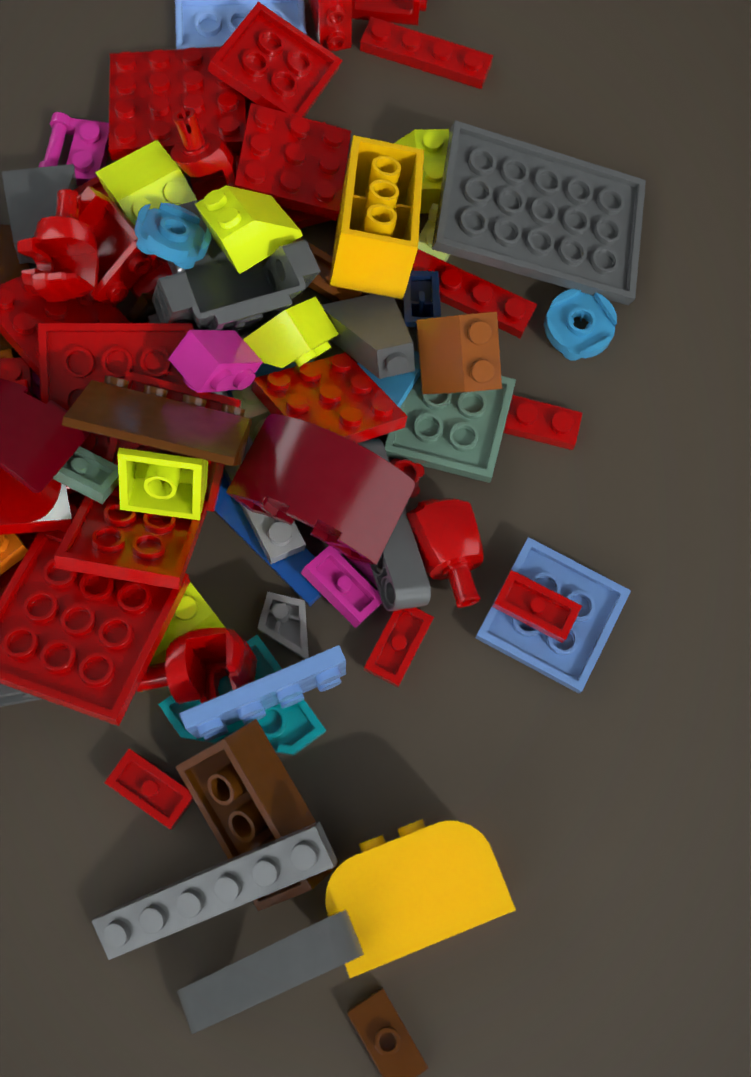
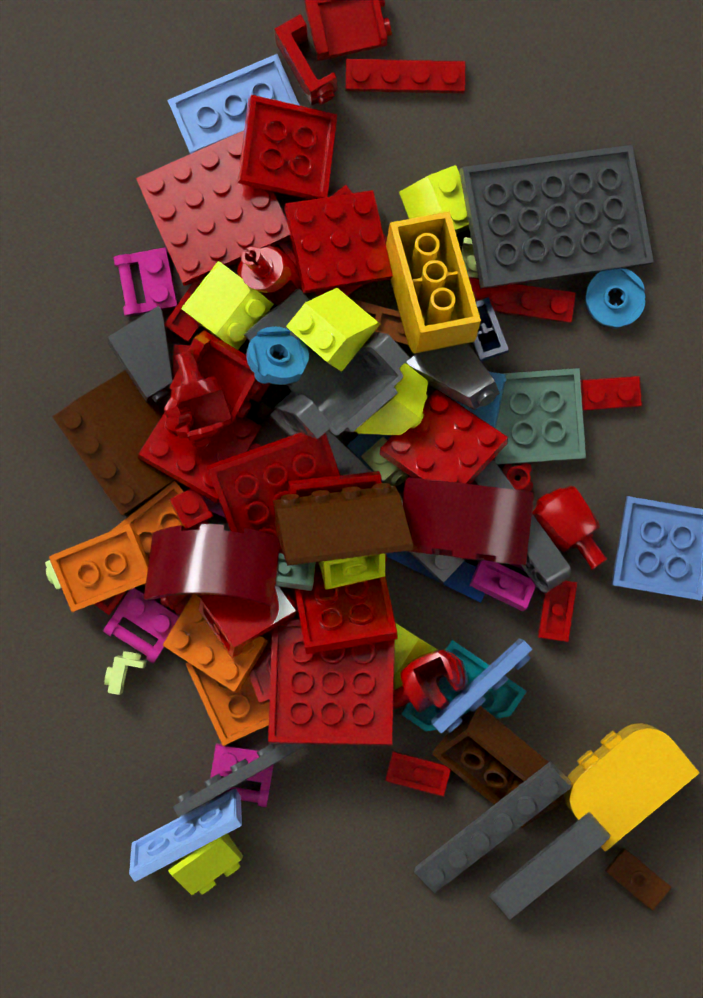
camera: 15 degrees left, 15 degrees up
(215, 361) = (355, 455): dark pink brick -> none
(285, 622) = (467, 621): light grey piece -> none
(459, 353) = (532, 372): dark orange slope -> none
(537, 606) = (651, 551): red plate -> none

